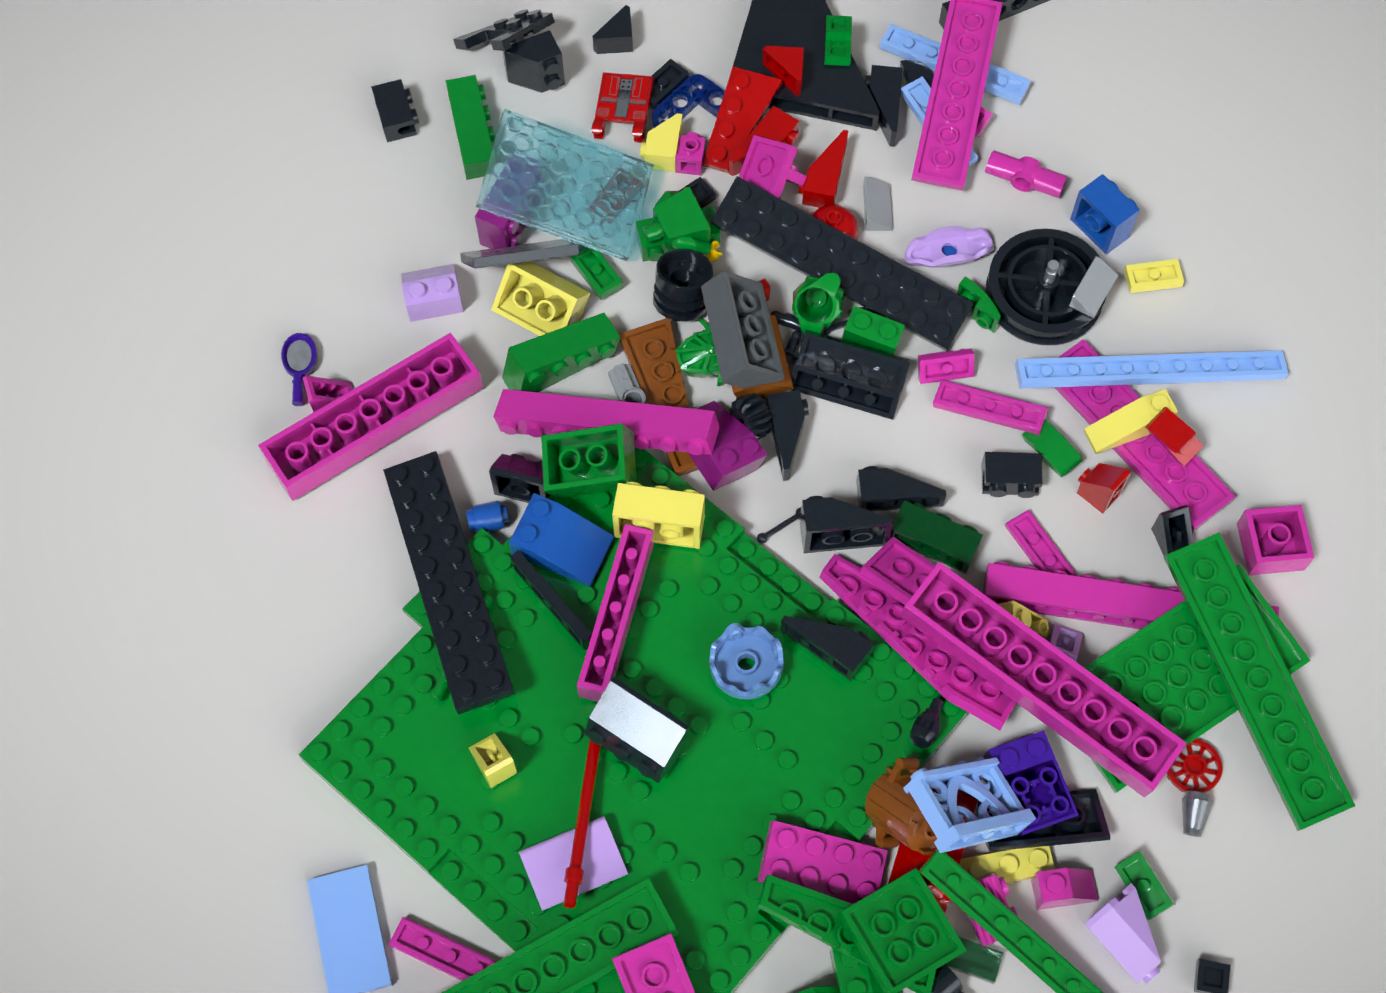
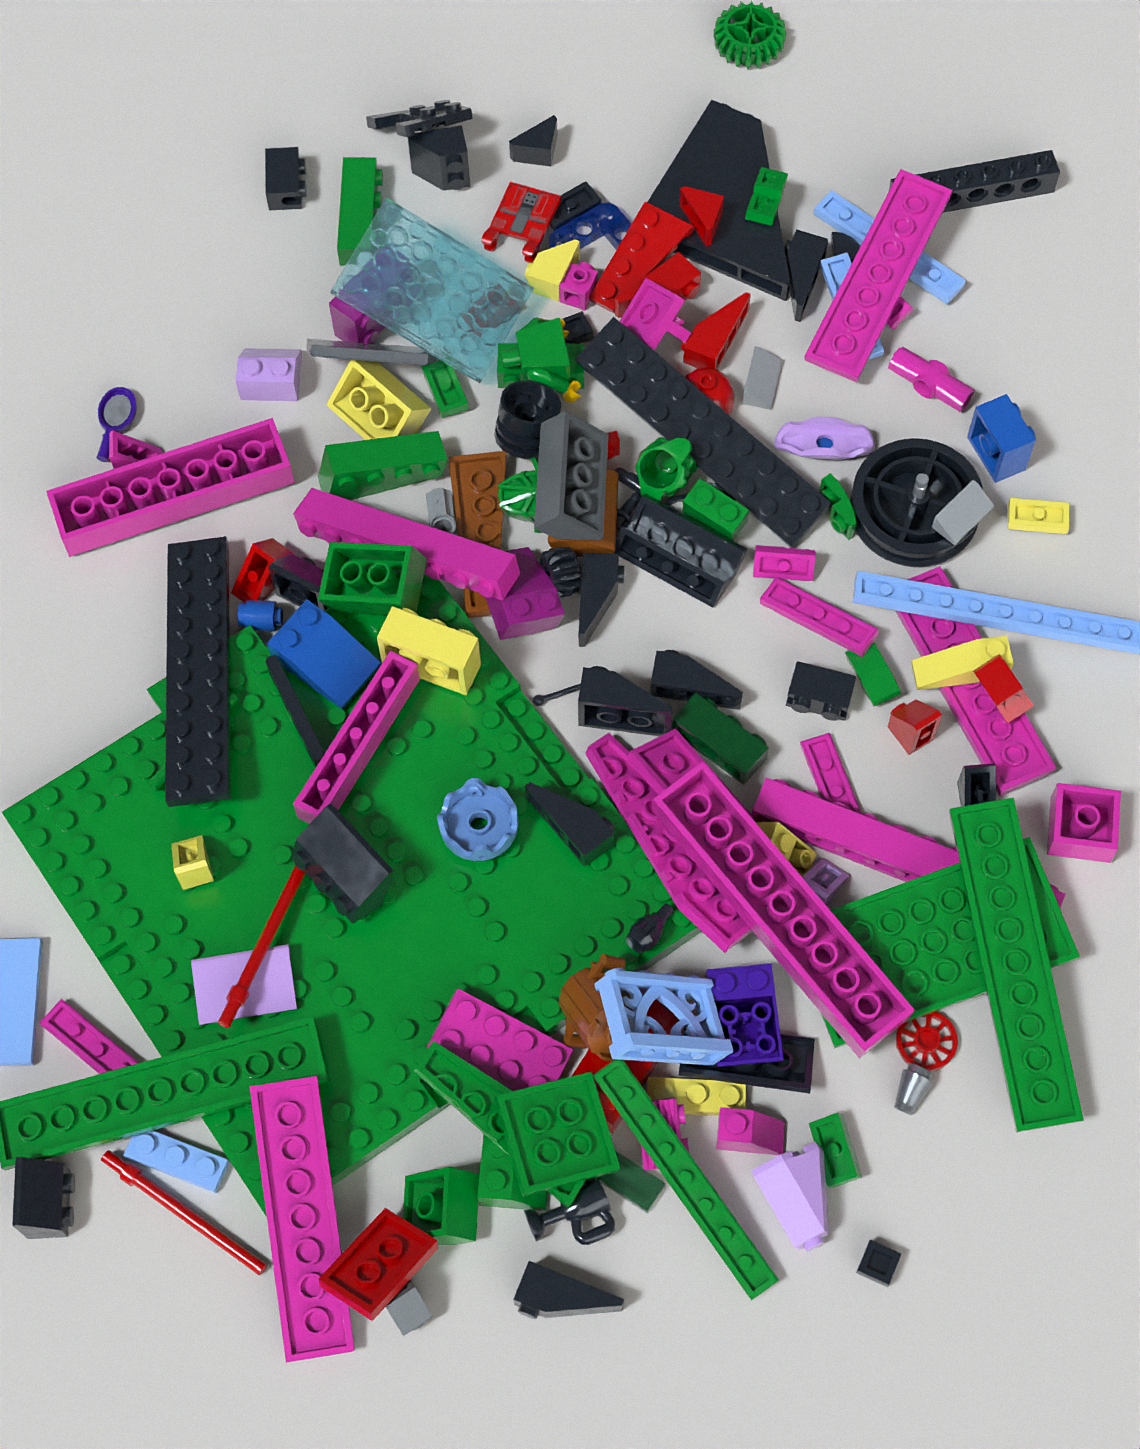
camera: 15 degrees right, 0 degrees up
(474, 477) = (254, 578): none -> red slope

